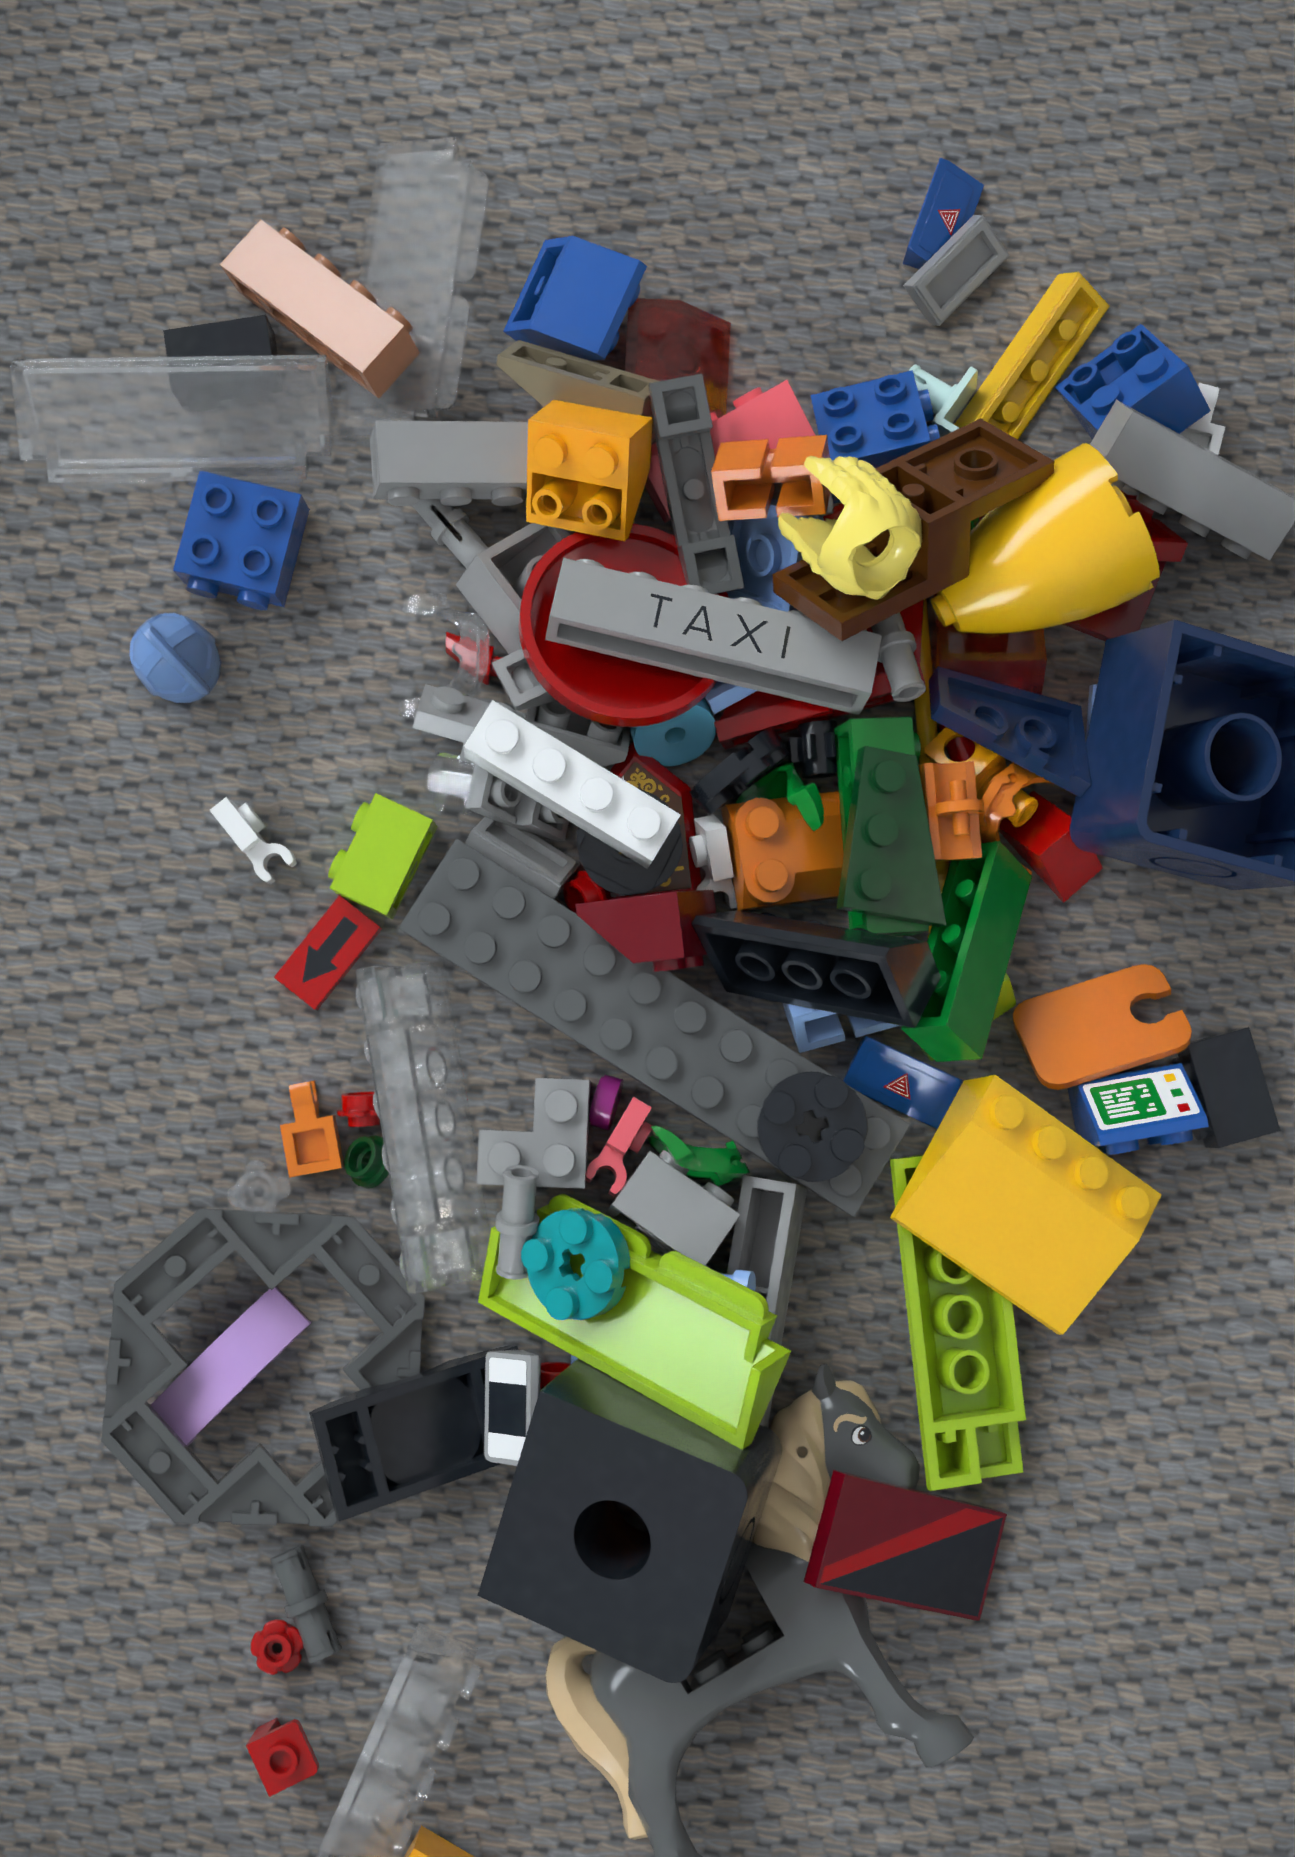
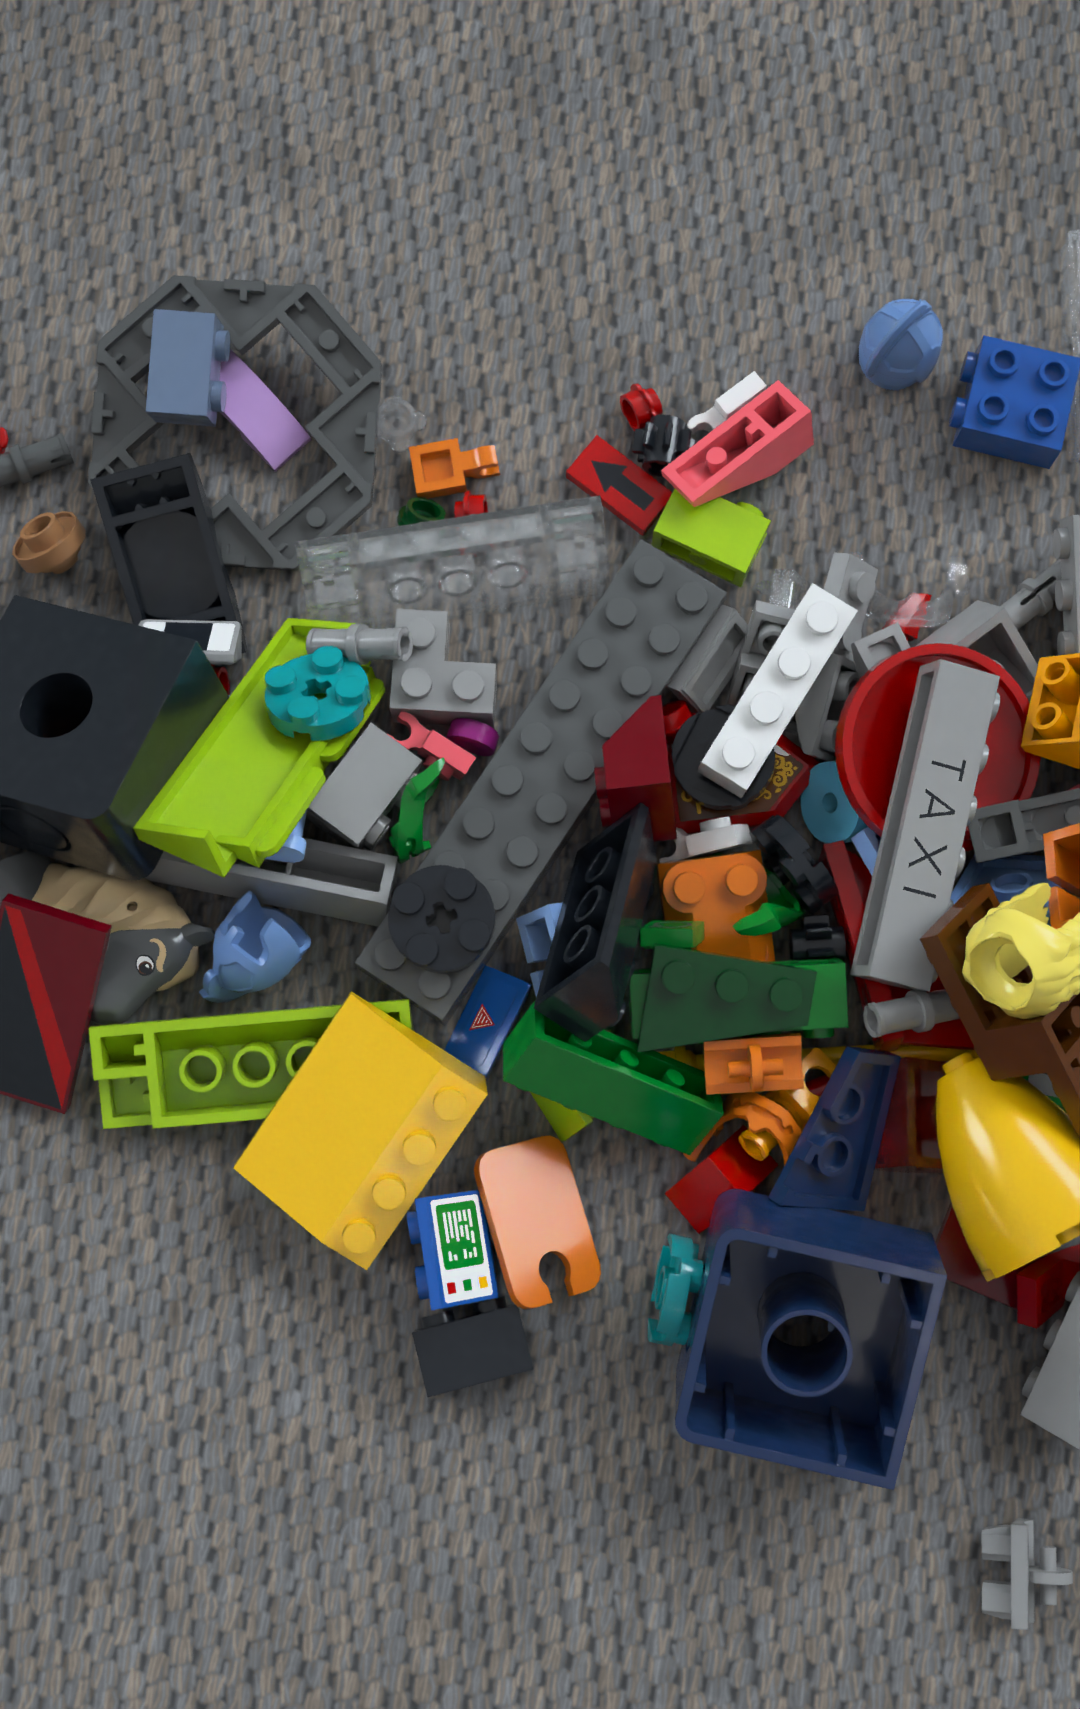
camera: 90 degrees right, 5 degrees down
(211, 1420) = (186, 368): none -> sand blue brick
(243, 930) = (640, 406): none -> red plate
(288, 905) = (661, 442): none -> black gear
(296, 822) = (744, 447): none -> coral slope
(398, 1565) = (49, 543): none -> medium nougat plate
(820, 892) = (672, 933): none -> green tile
(838, 1321) = (252, 950): none -> medium blue helmet
(1161, 888) = (675, 1277): none -> teal plate

